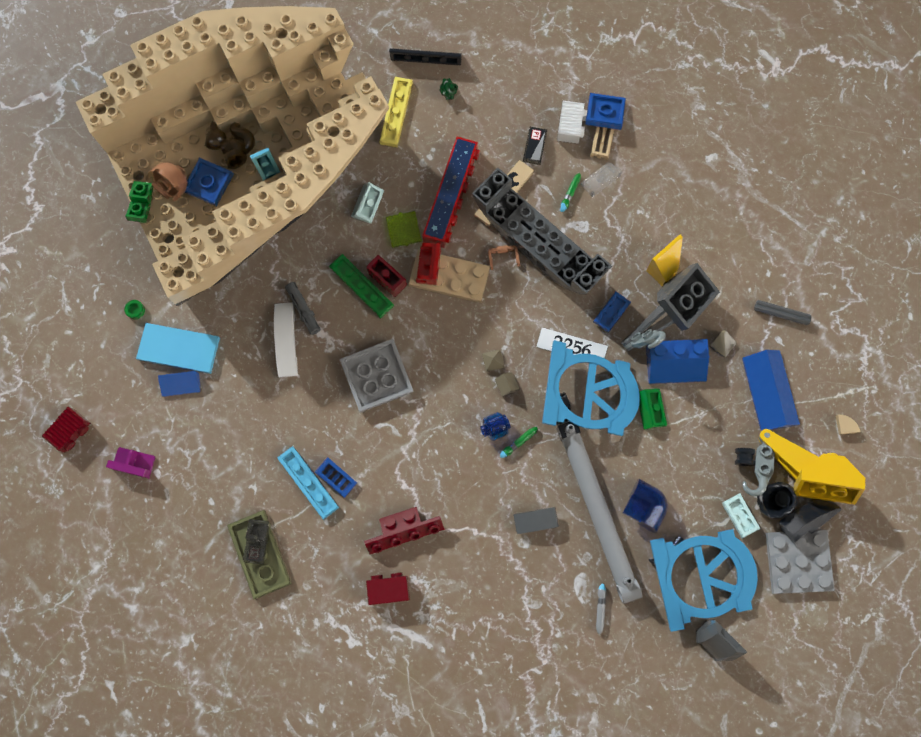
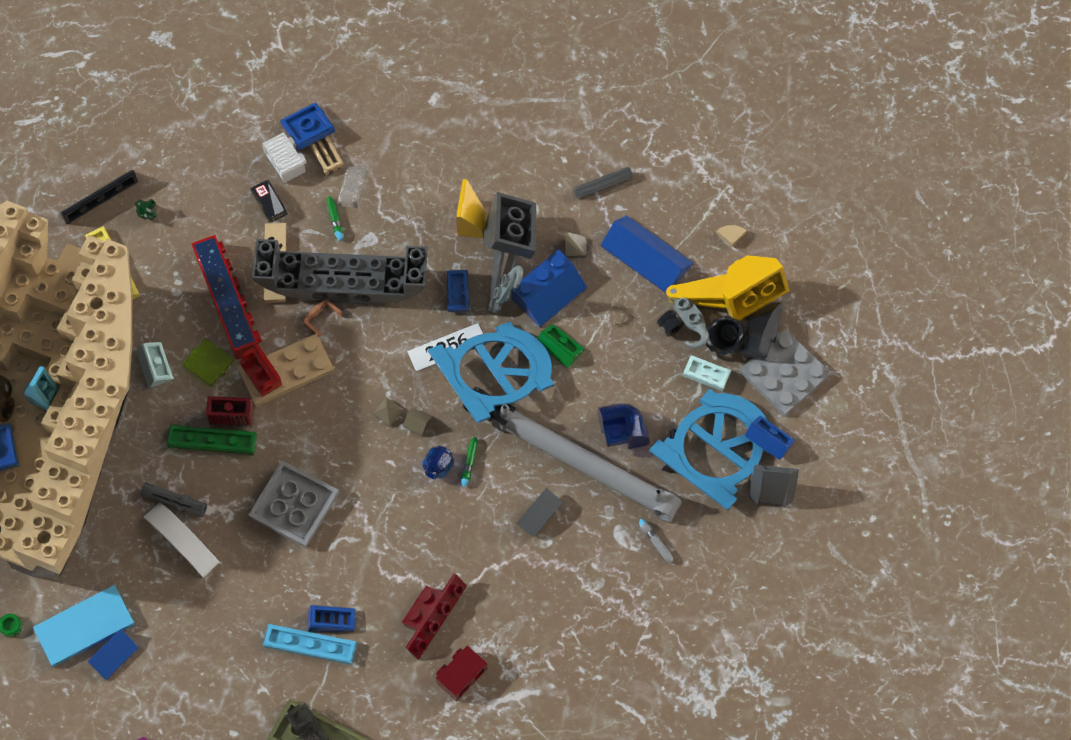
camera: 45 degrees left, 10 degrees down
(747, 602) = (769, 437): none -> blue slope

